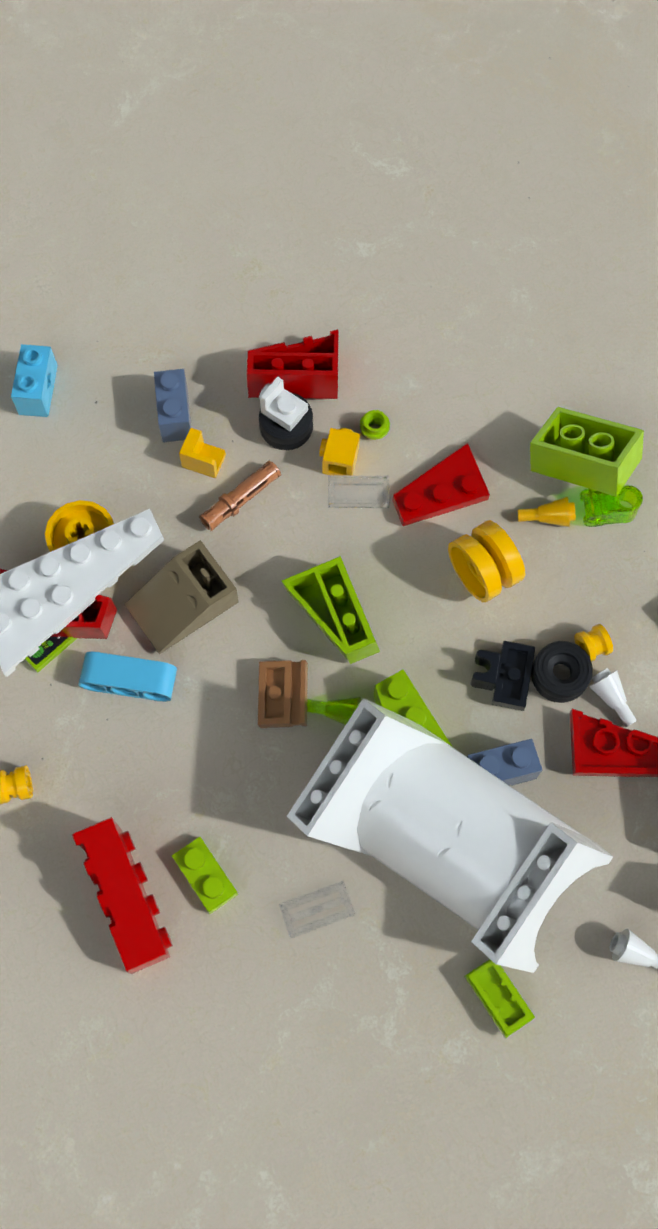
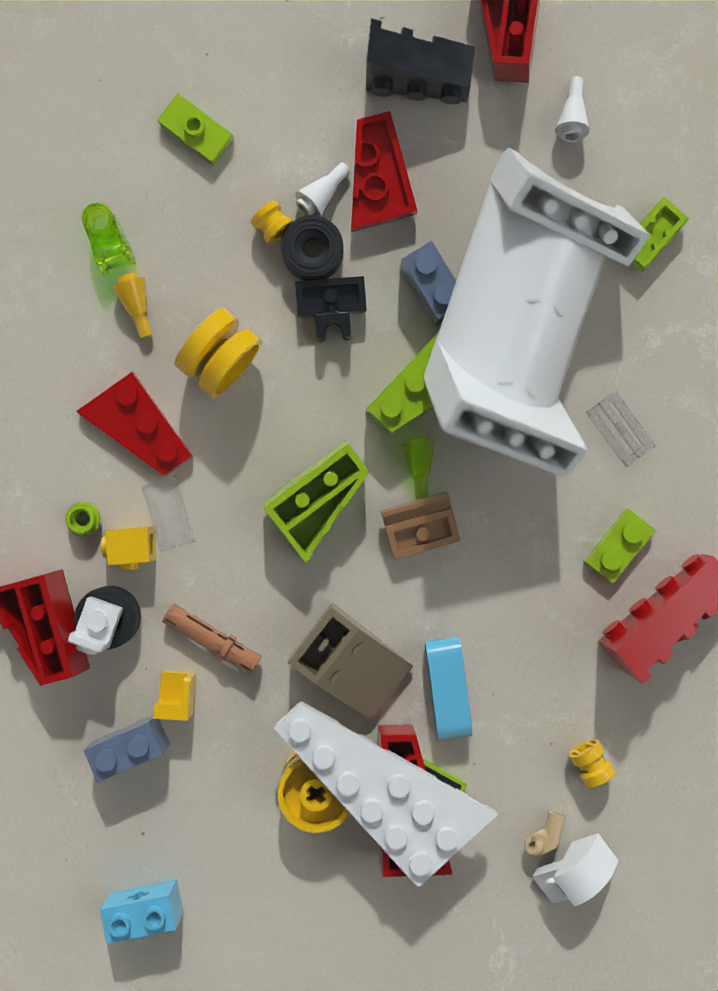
camera: 100 degrees left, 20 degrees up
(586, 451) = (54, 274): lime brick -> none

